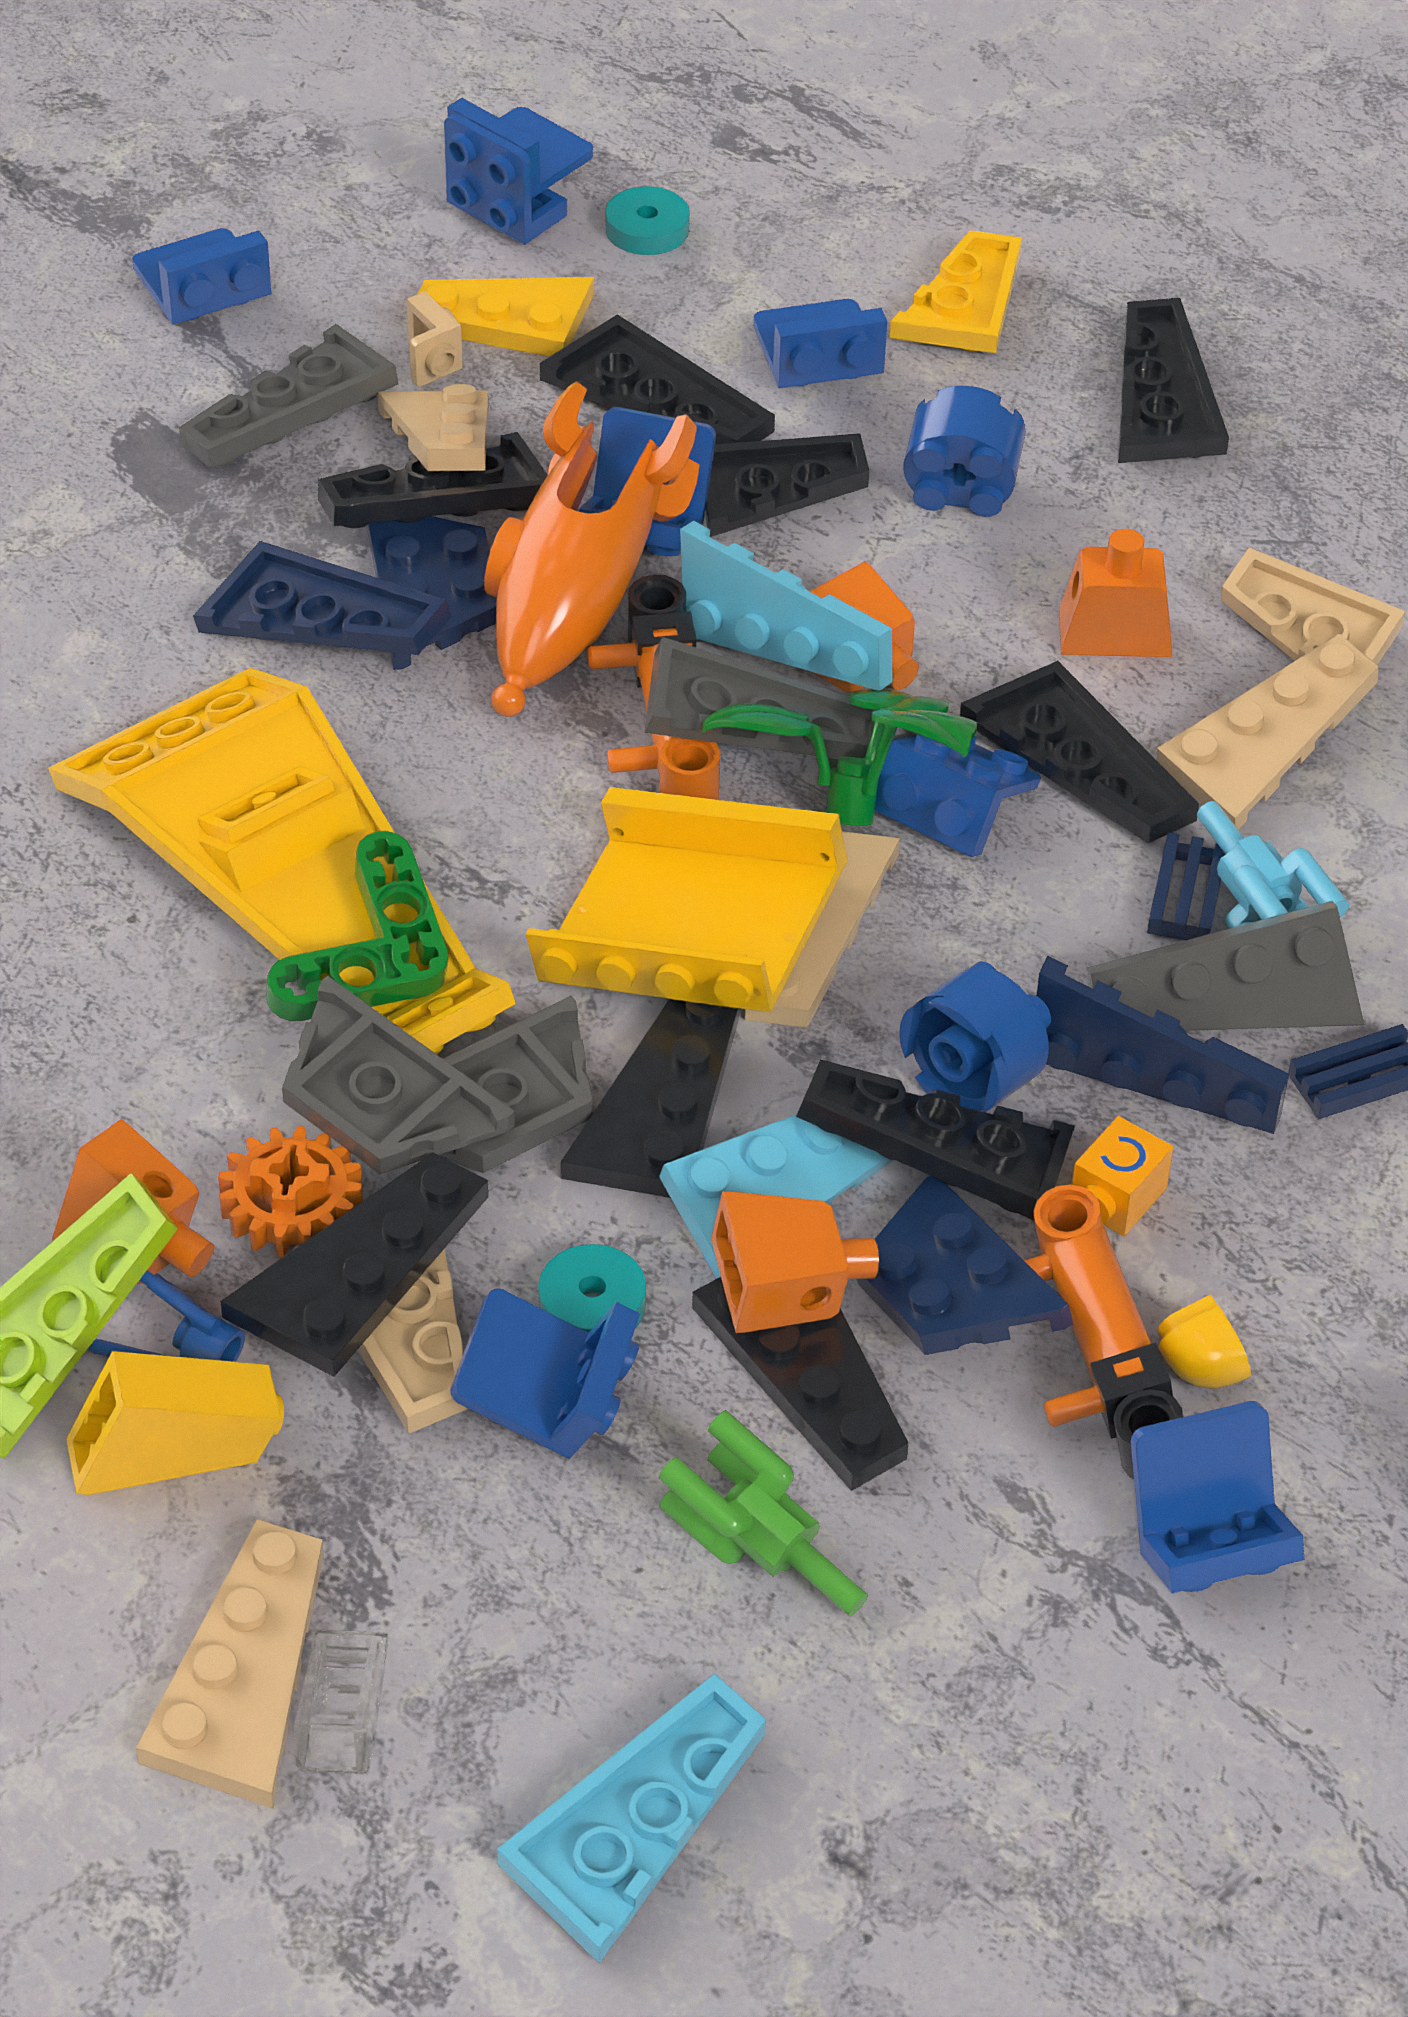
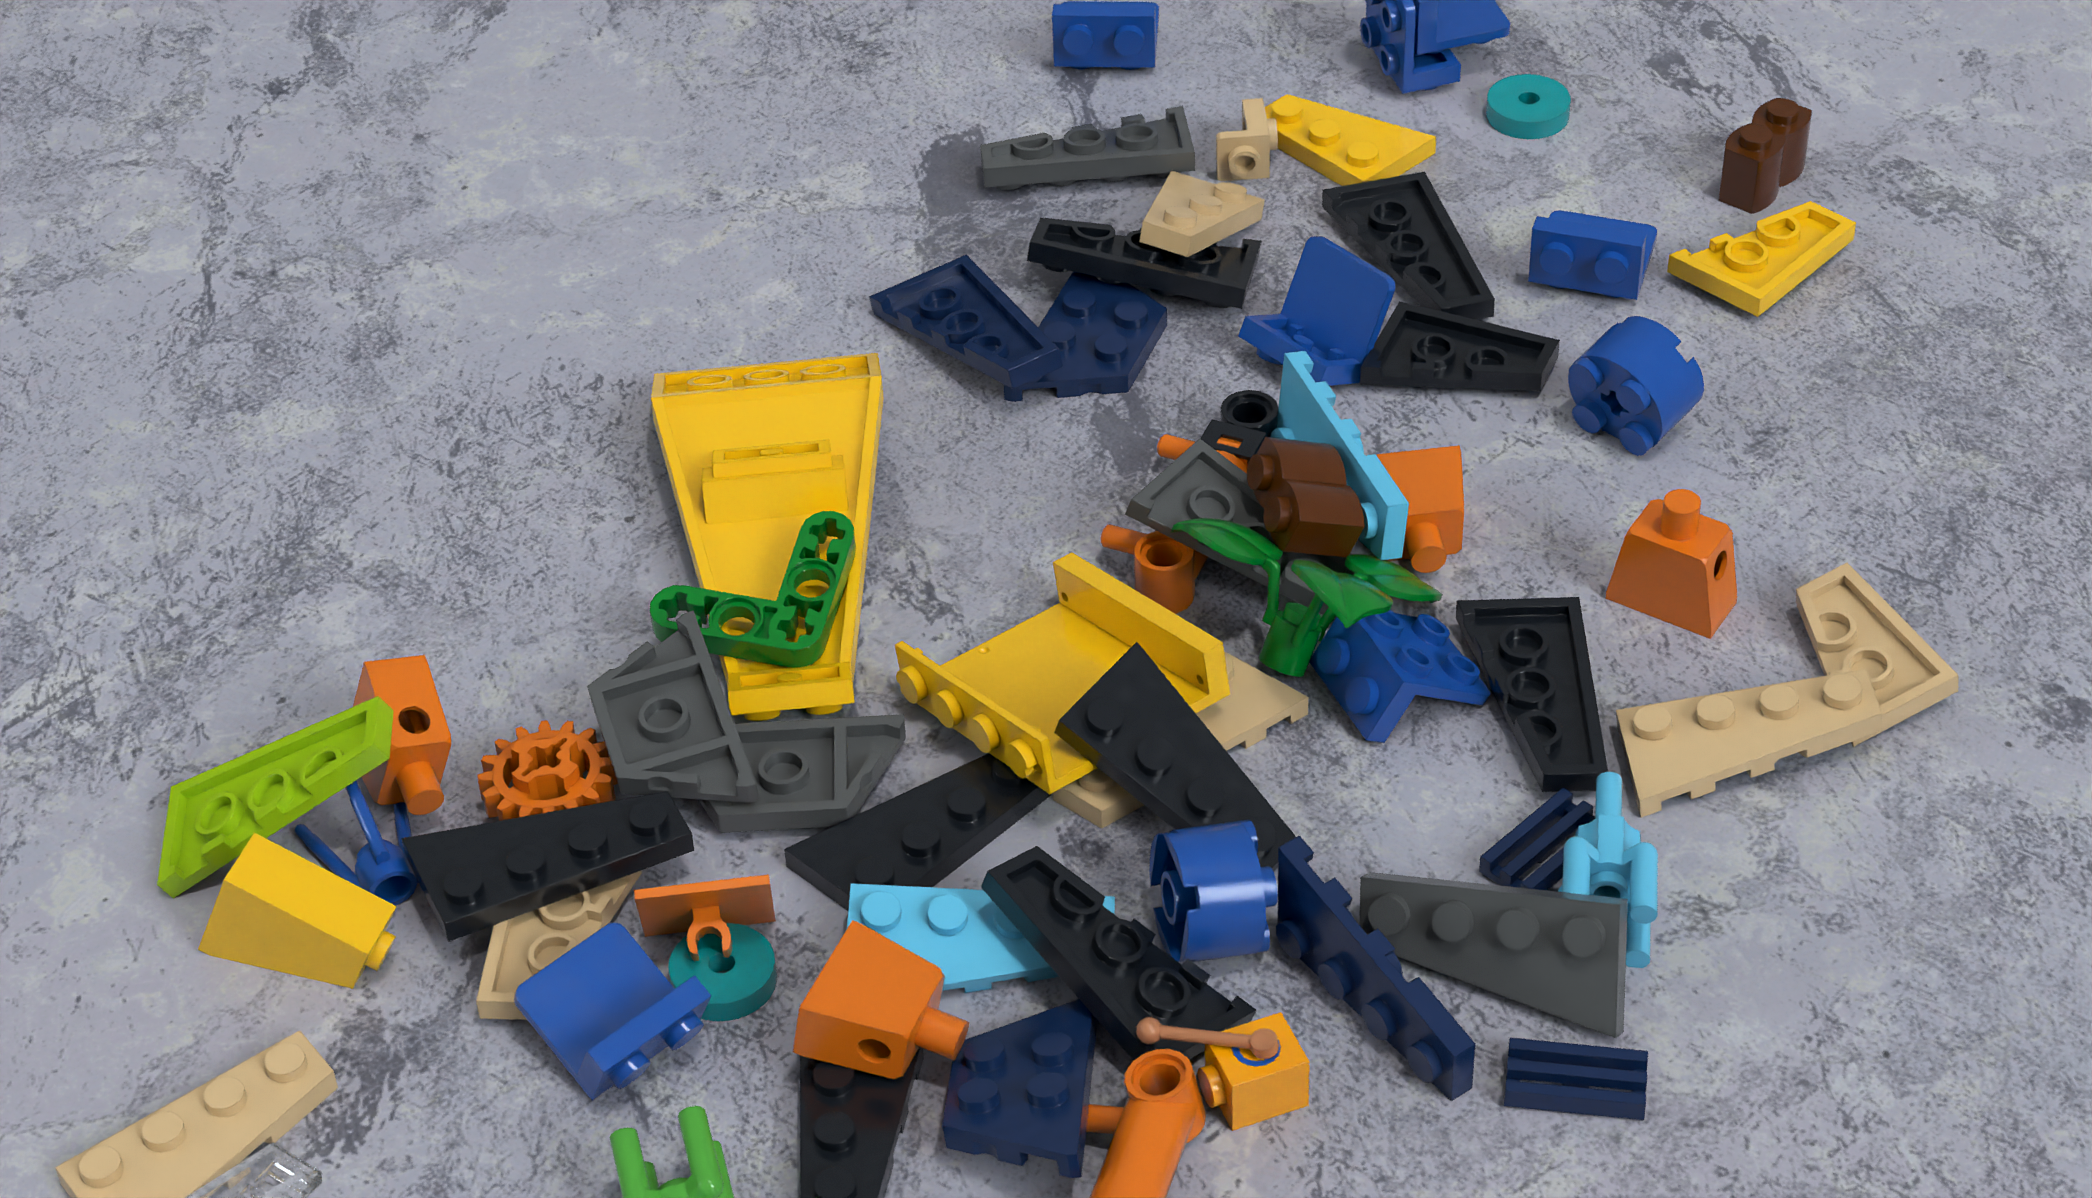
camera: 35 degrees right, 5 degrees down
(560, 1246) = (705, 908): none -> orange piece
(568, 570) = (1205, 341): orange piece -> none
(793, 656) = (1305, 497): none -> reddish brown brick
(841, 936) = (1164, 754): none -> black wing
(899, 199) = (1765, 155): none -> reddish brown brick
(1132, 1148) = (1261, 1042): none -> nougat hinge
(1165, 388) = (1891, 400): black wing -> none

